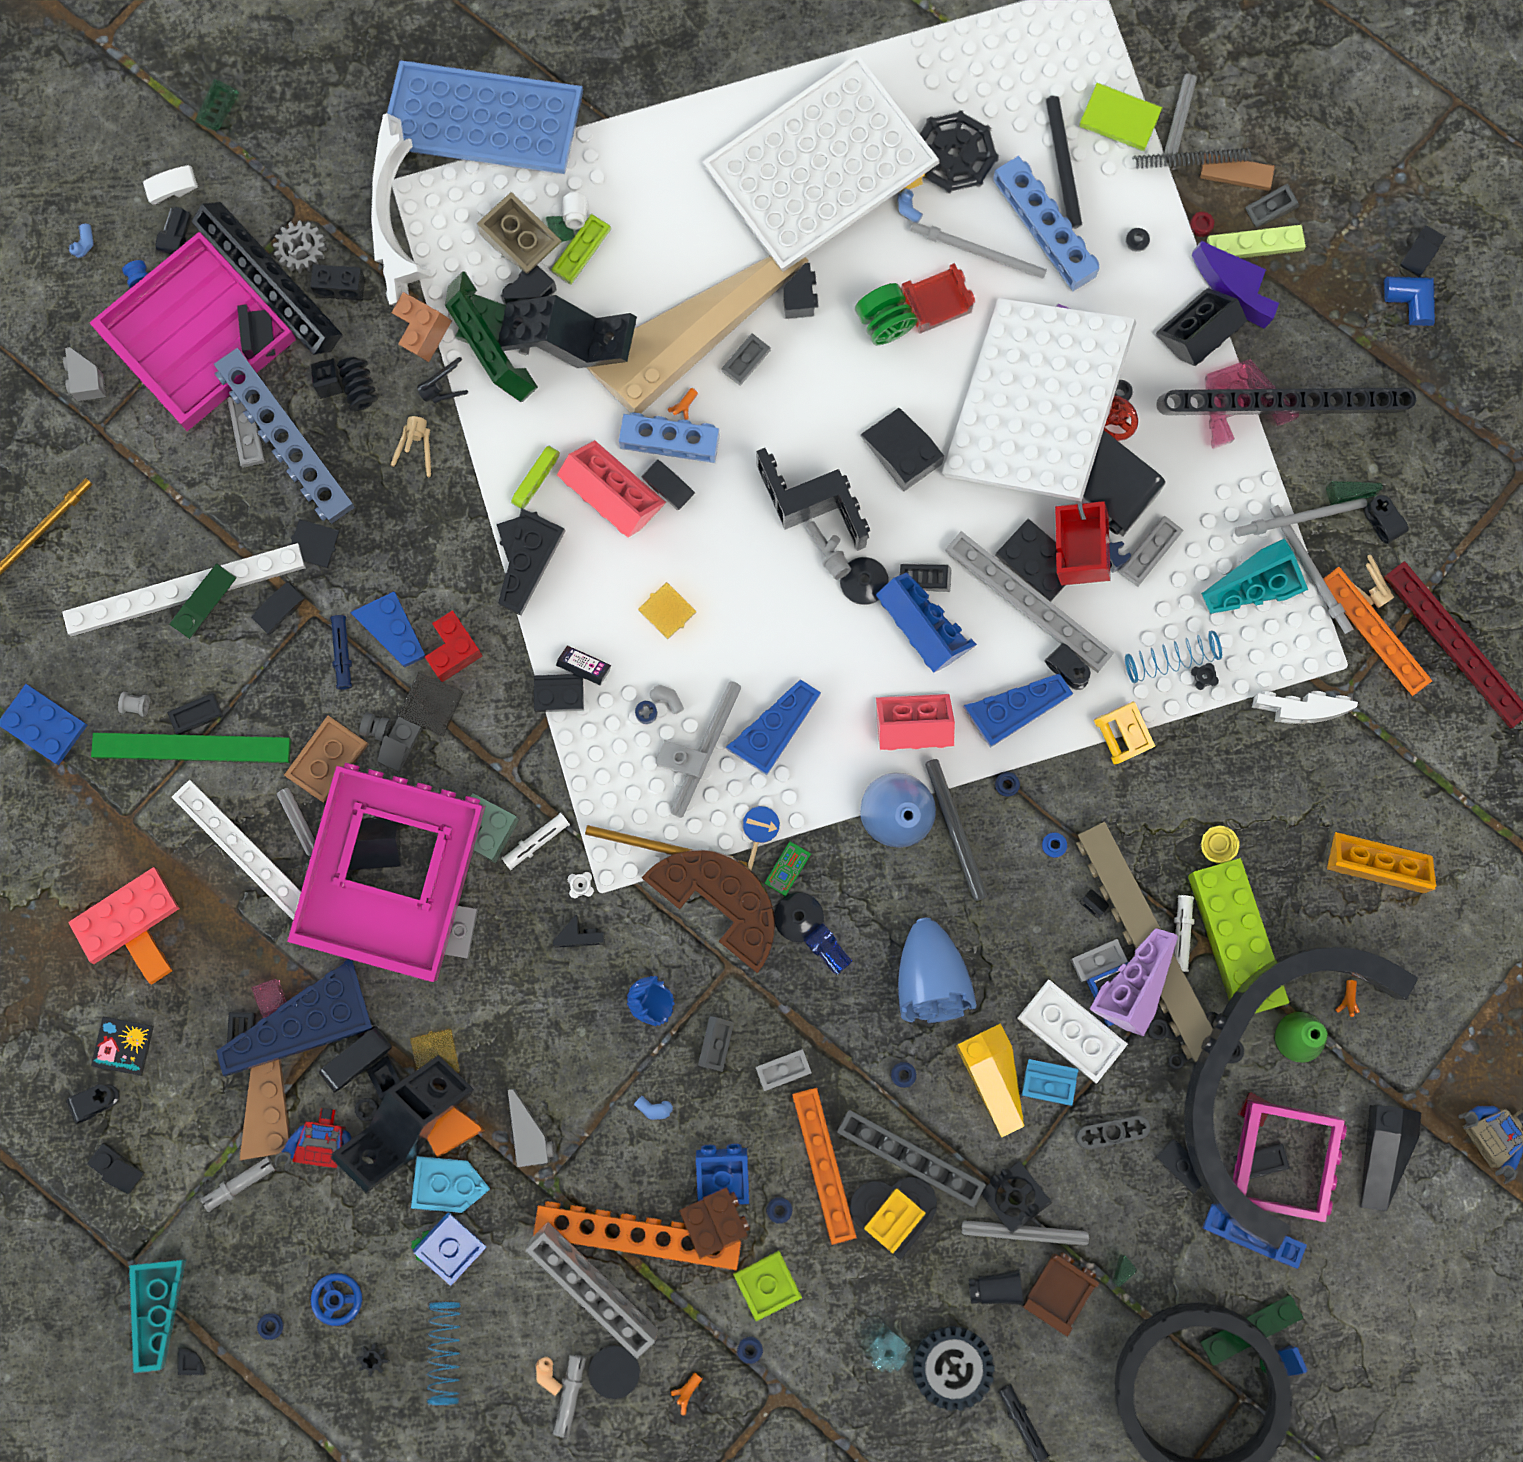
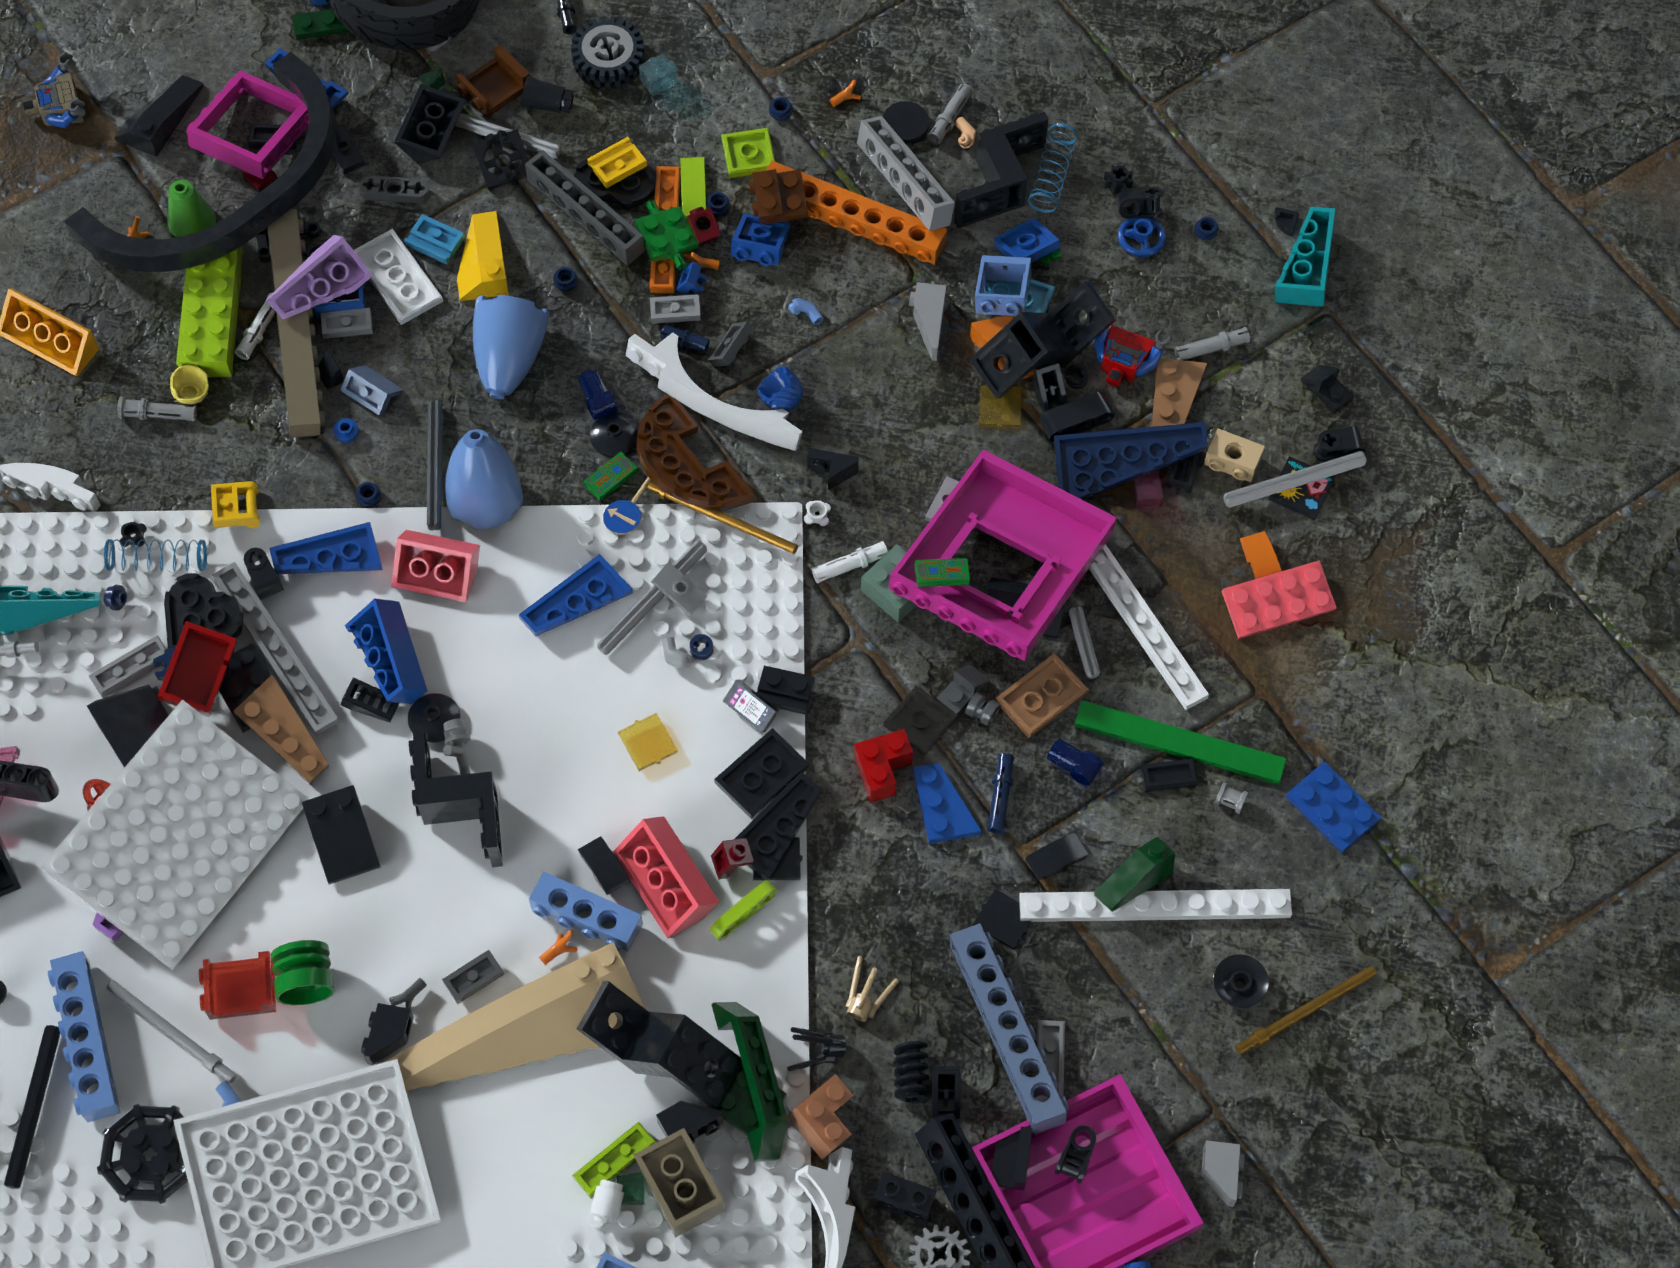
camera: 165 degrees left, 15 degrees down
(88, 530) = (1242, 969): none -> black dish
(127, 1047) = (1294, 479): none -> light grey axle
(177, 1059) = (1227, 444): none -> tan brick
(201, 339) = (1075, 1158): none -> black piece
(277, 698) = (1081, 765): none -> clear blue piece
(345, 1331) = (1145, 203): none -> black piece
(433, 819) = (942, 572): none -> green tile
(461, 1204) = (992, 269): none -> medium blue window
(495, 1329) = (1001, 169): none -> black bracket
(555, 605) = (761, 773): none -> black plate
(556, 517) = (731, 855): none -> dark red bracket
(763, 1039) = (687, 339): none -> dark blue axle
(770, 997) = (665, 365): none -> white slope
(775, 1135) = (704, 262): none -> orange bar
(779, 1108) = (689, 278): none -> blue tile
(779, 1162) = (706, 236): none -> dark red brick
(795, 331) = (409, 994): none -> dark grey bar
(810, 1221) = (693, 184): none -> lime tile
(818, 1151) = (666, 234): none -> green plate
(999, 528) = (279, 726): none -> medium nougat wing
(1047, 897) = (369, 388): none -> sand blue panel
(1104, 1214) = (429, 124): none -> black slope
(1108, 609) = (196, 601): none -> black plate
(1192, 608) = (115, 597): none -> dark blue plate
(1252, 810) = (143, 409): none -> light grey pin

